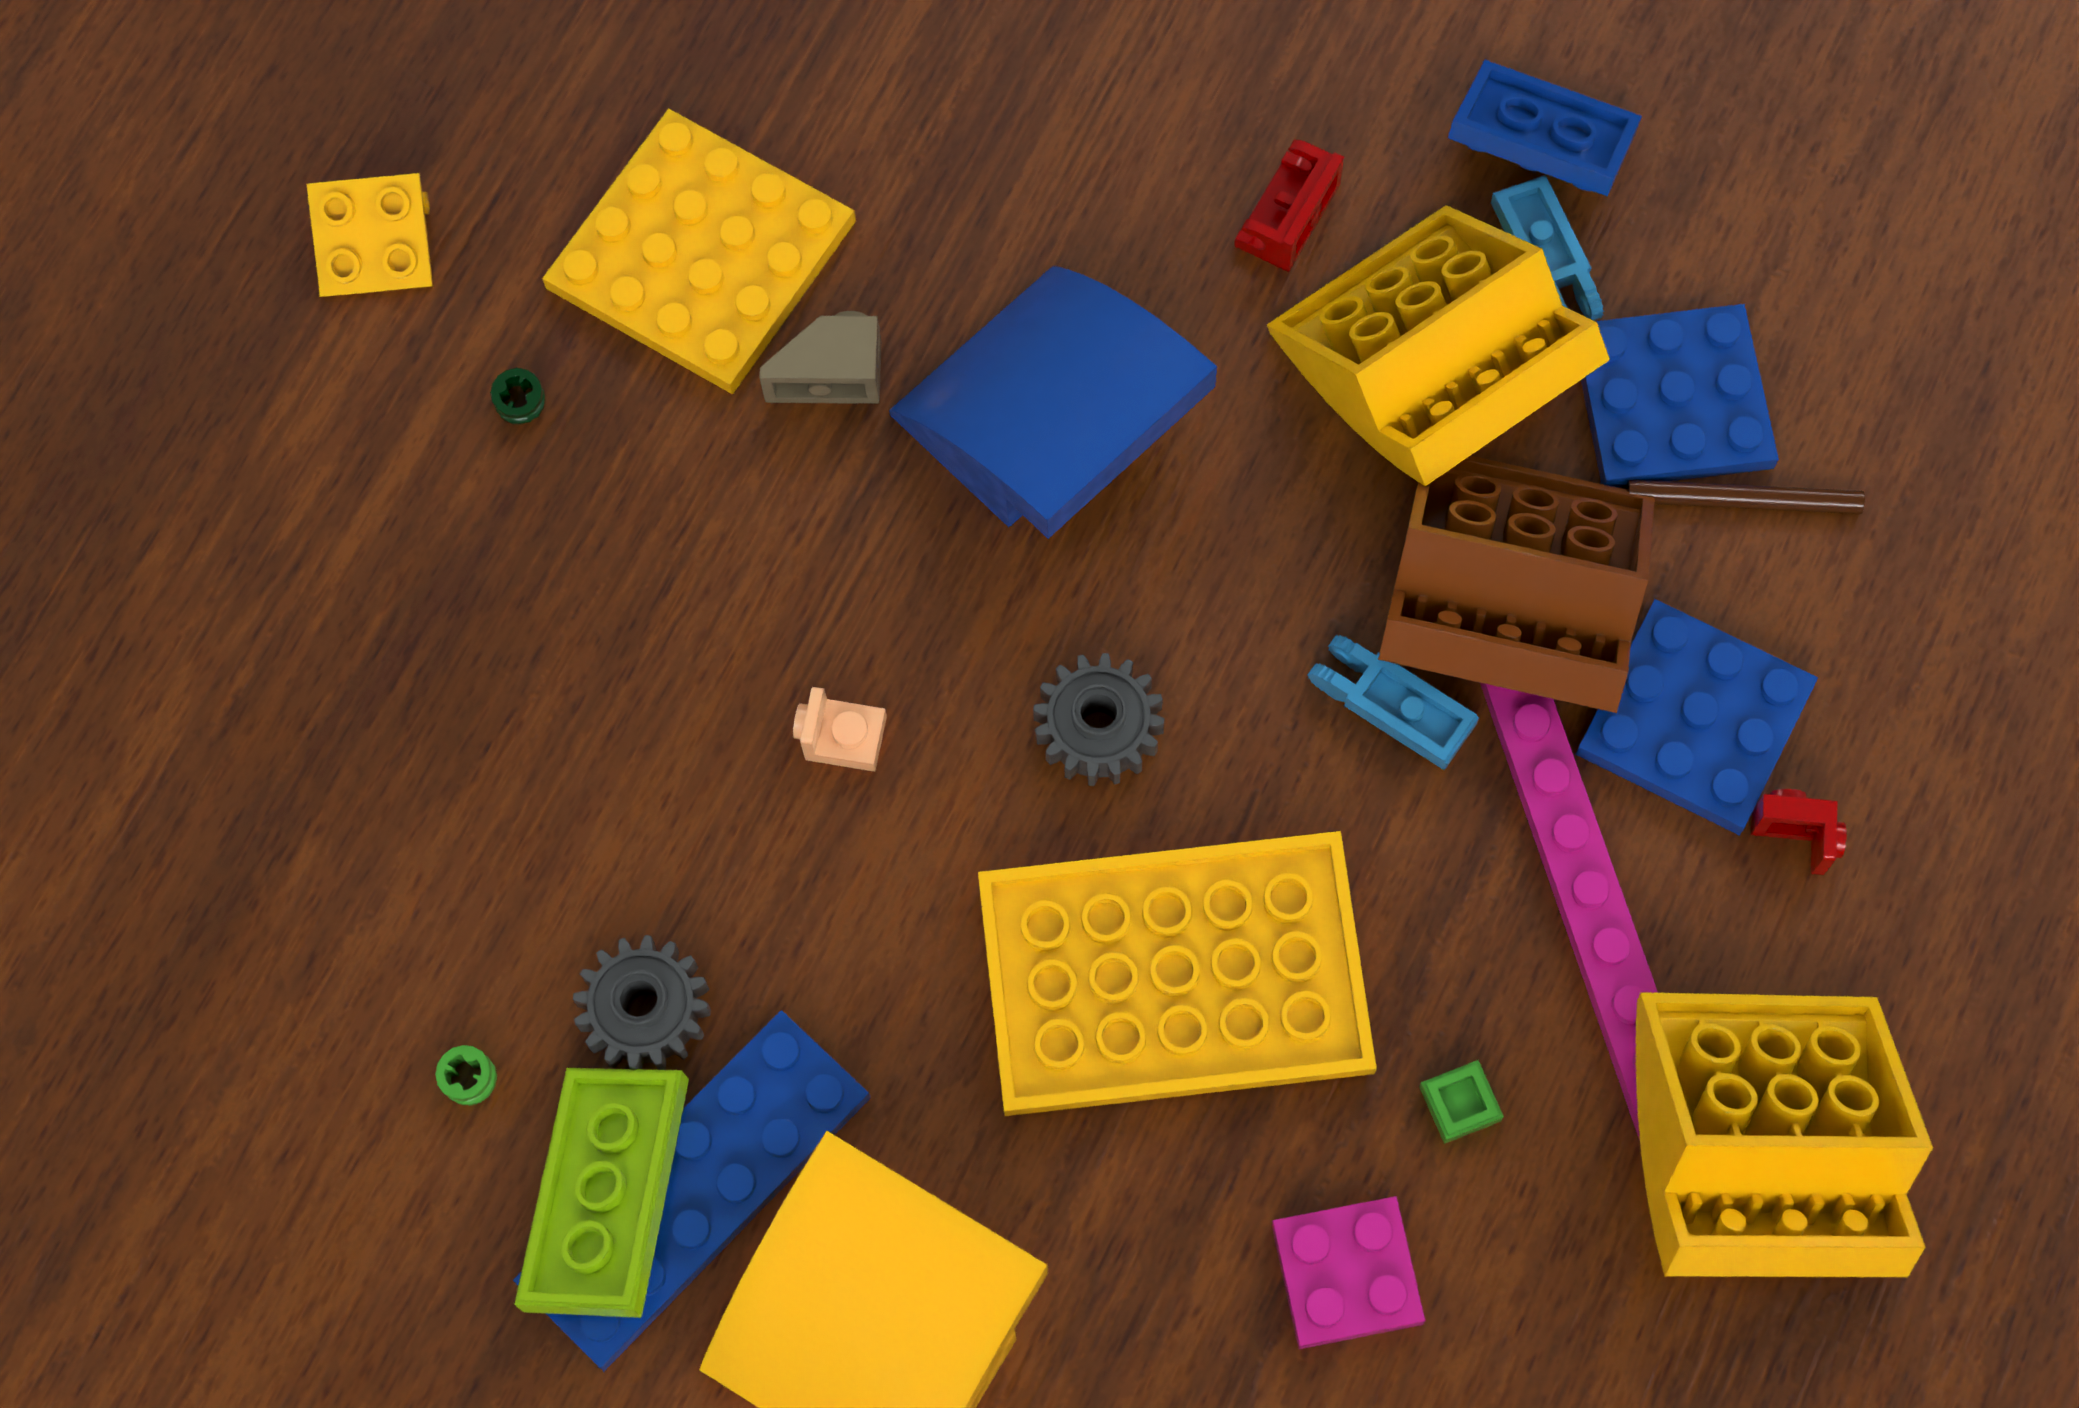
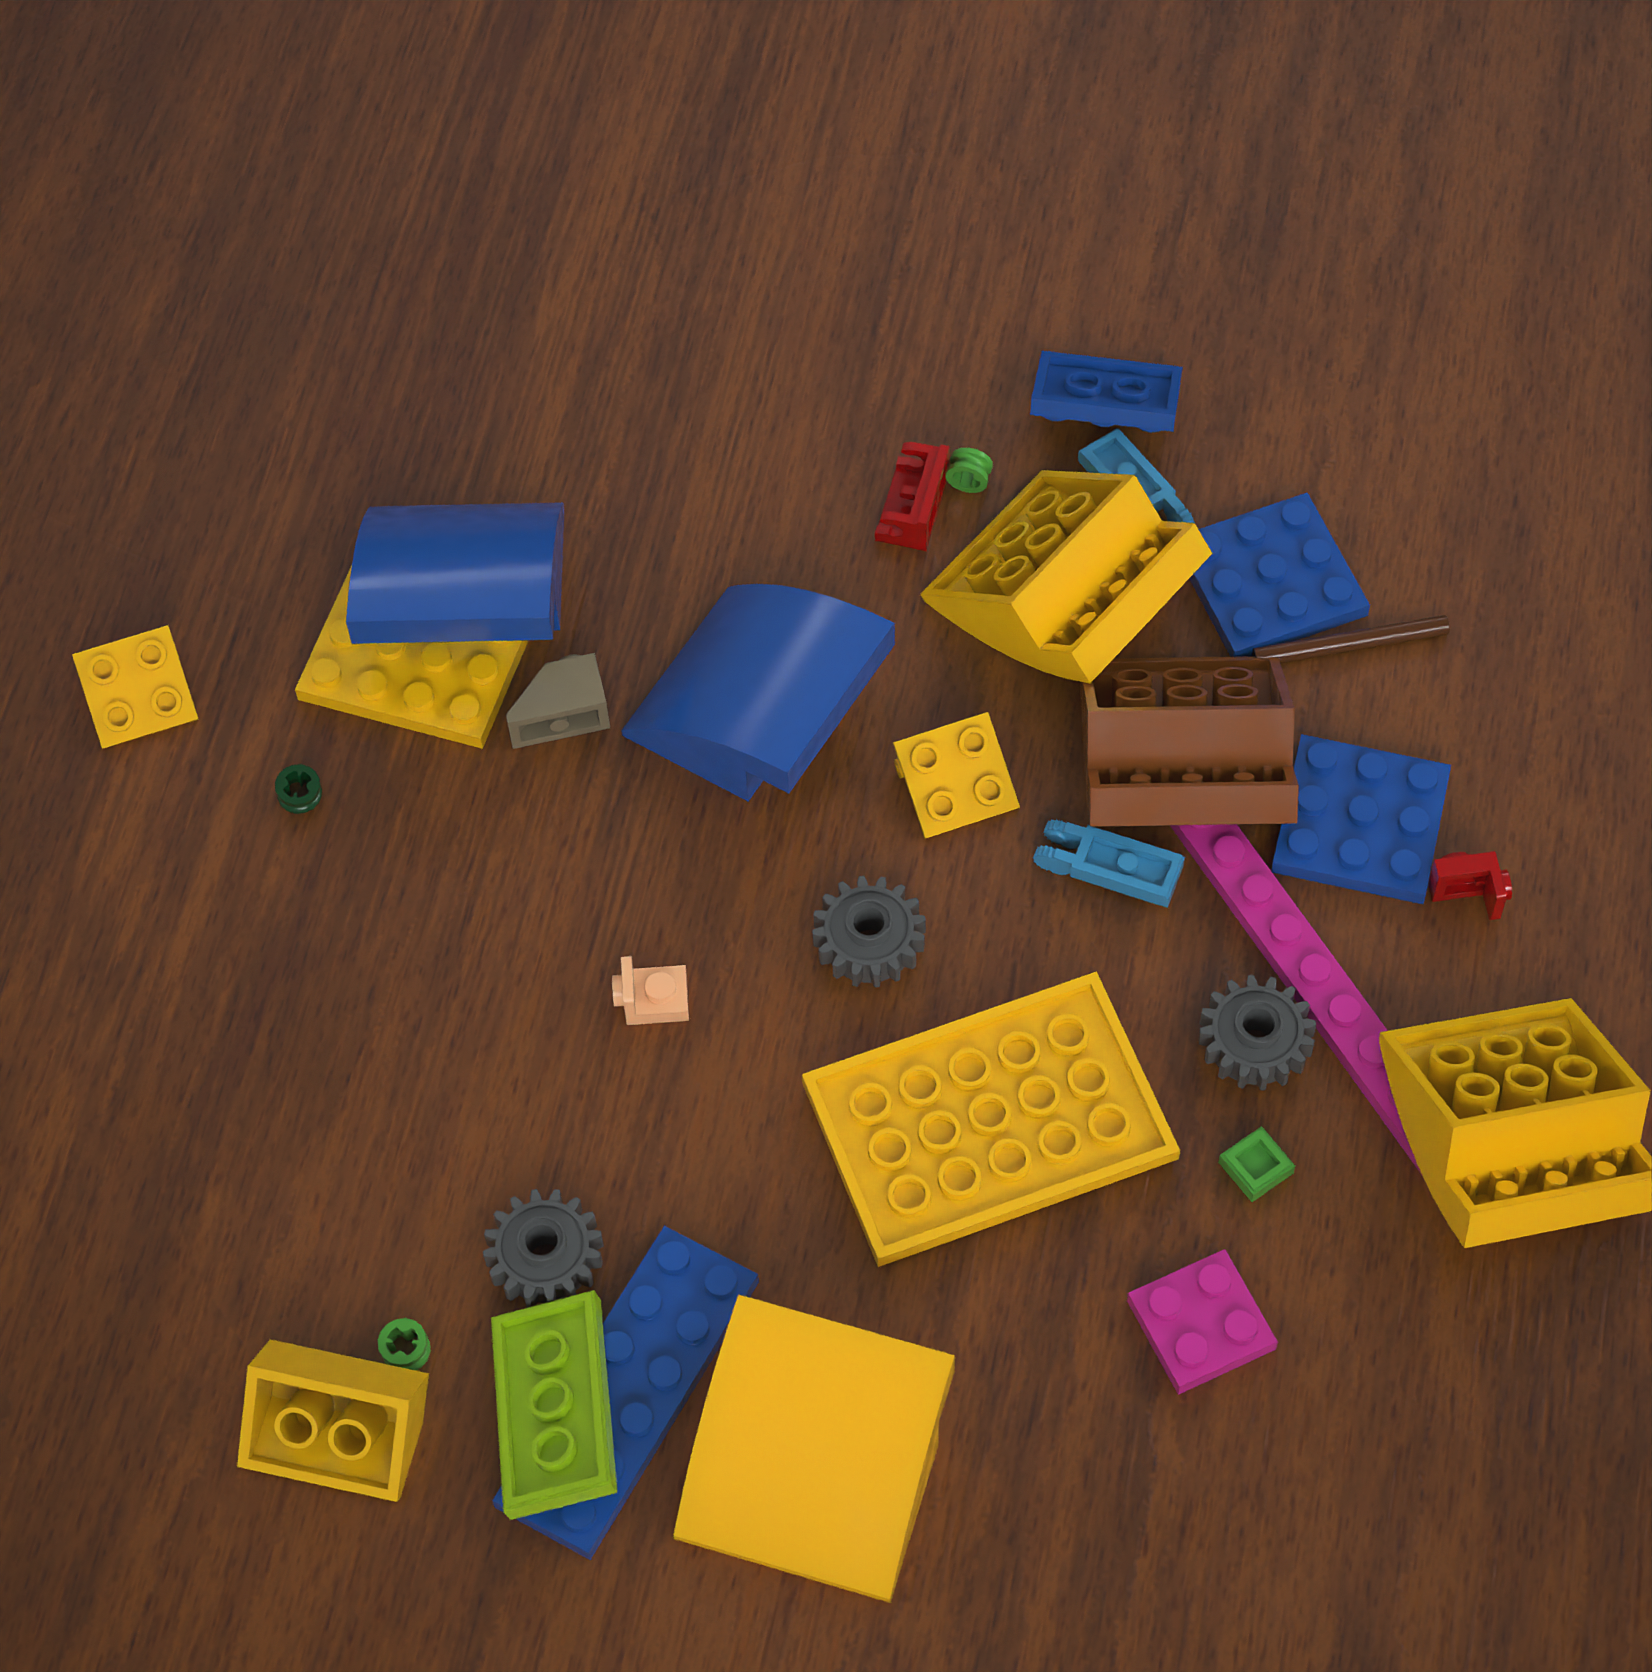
camera: 15 degrees left, 10 degrees down
(364, 1142) = (331, 1419): none -> yellow slope
(746, 187) = (457, 573): none -> blue slope
(1247, 555) = (955, 775): none -> yellow hinge
(1361, 187) = (969, 470): none -> bright green bush
(1511, 918) = (1262, 1009): none -> dark grey gear

